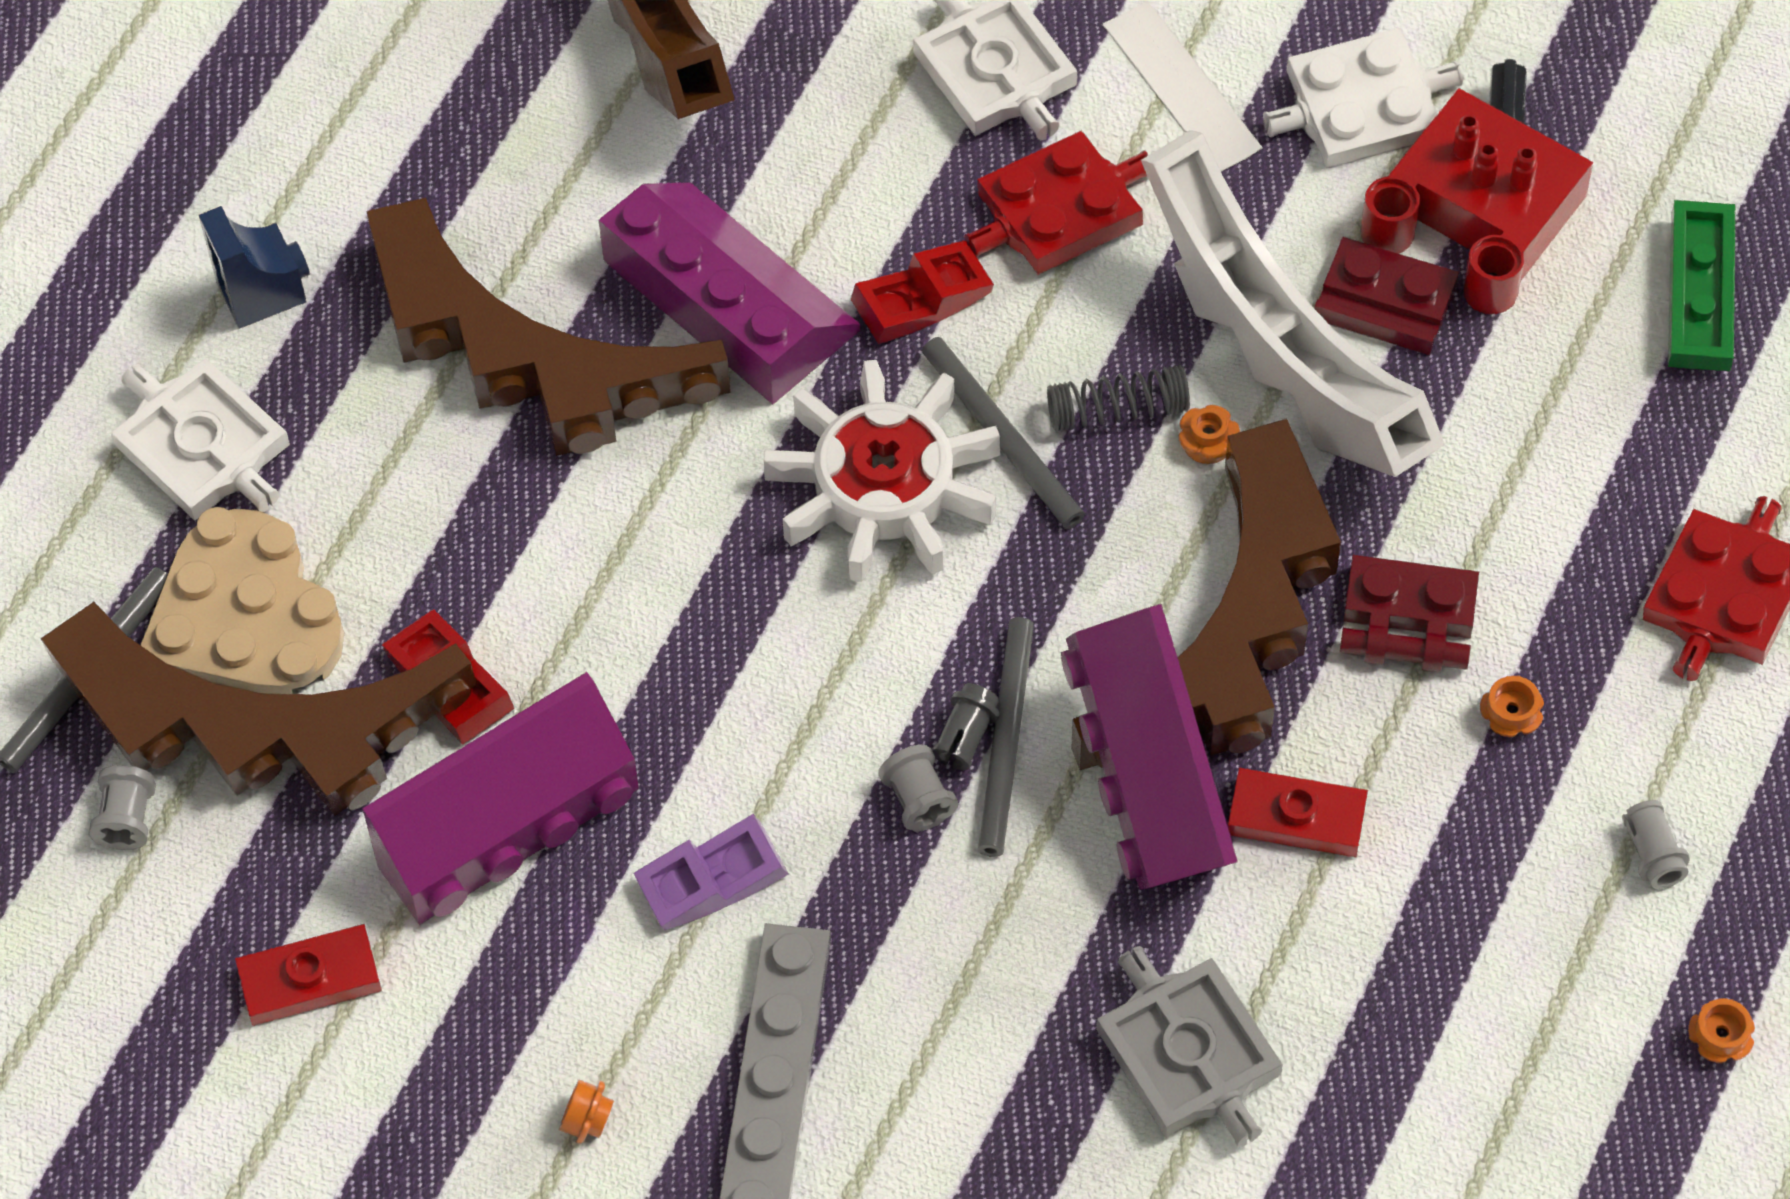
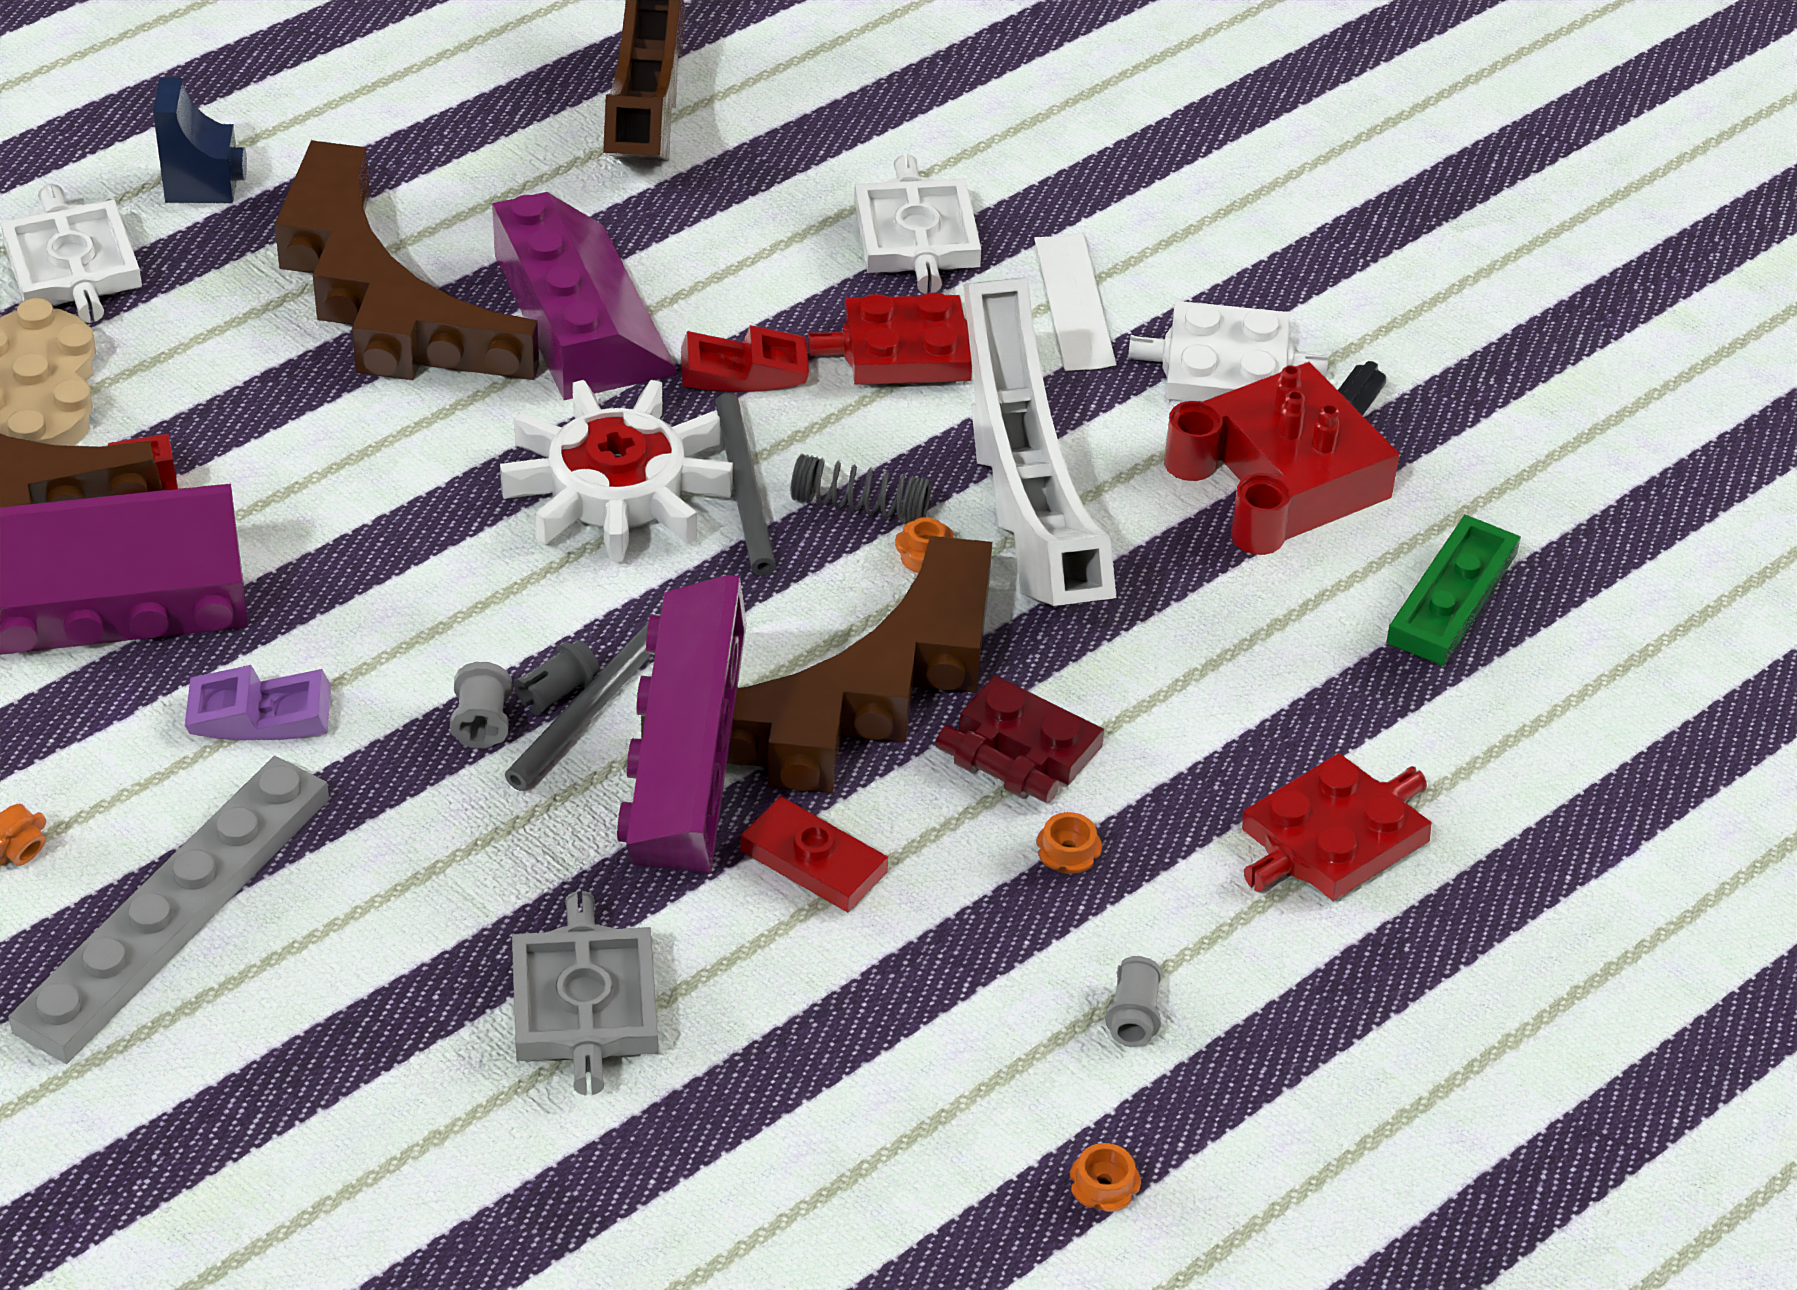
camera: 20 degrees right, 15 degrees down
(1386, 295) = (1156, 502): dark red plate -> none

